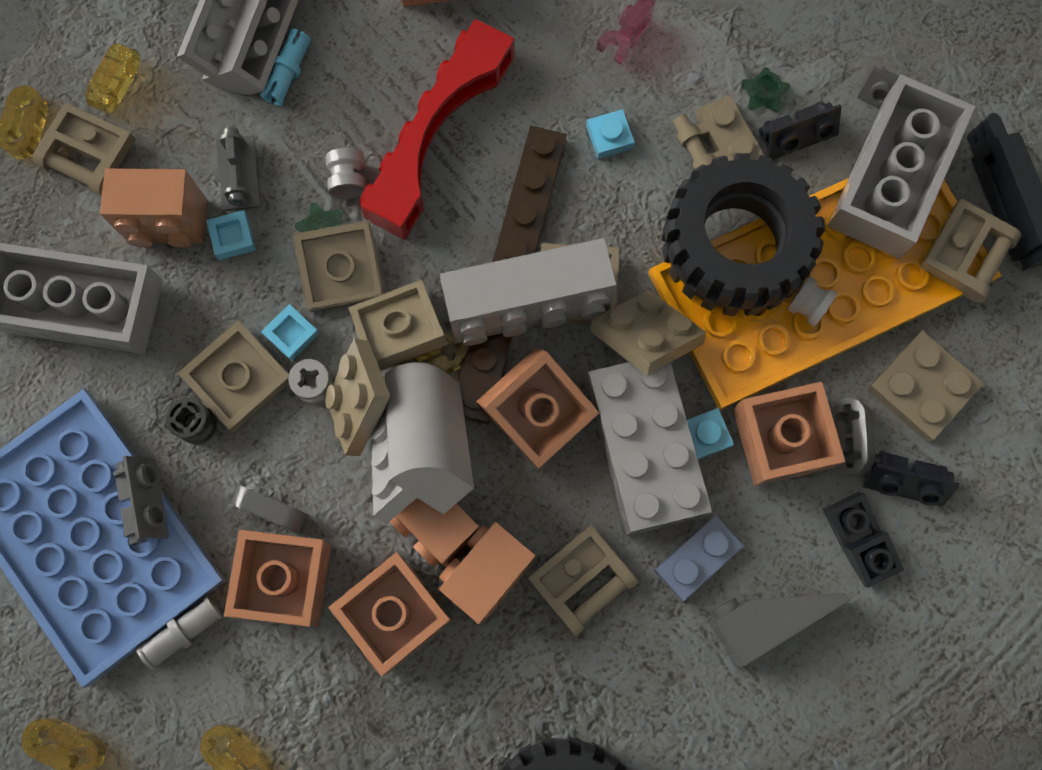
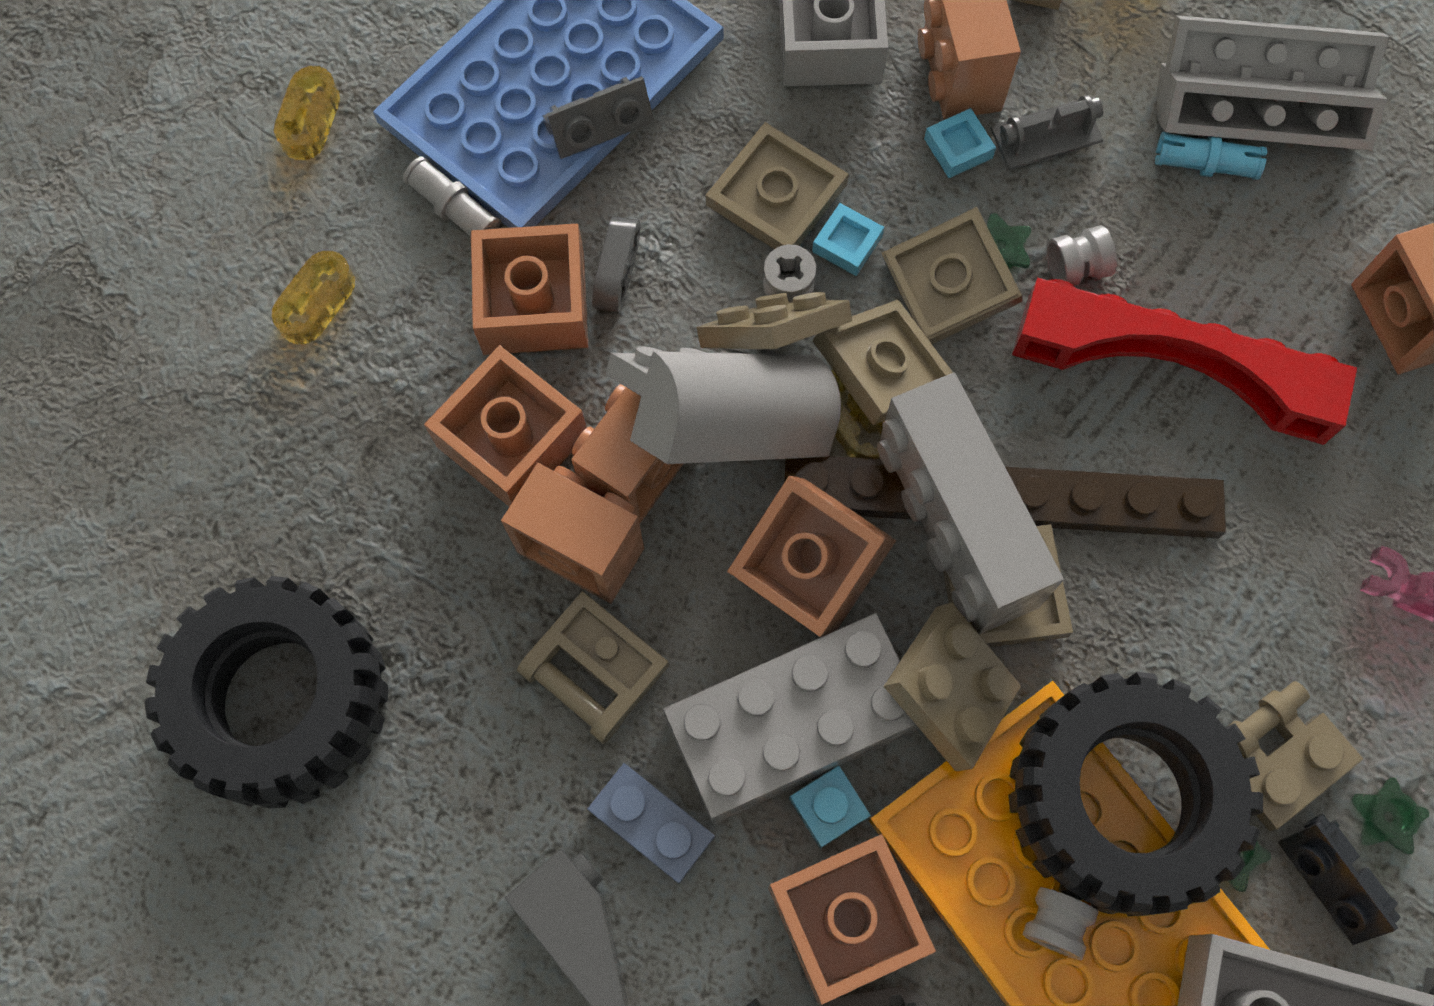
camera: 80 degrees right, 5 degrees down
(197, 427) = (707, 150): pearl dark grey wheel -> none
(610, 134) = (1245, 595): medium azure plate -> none

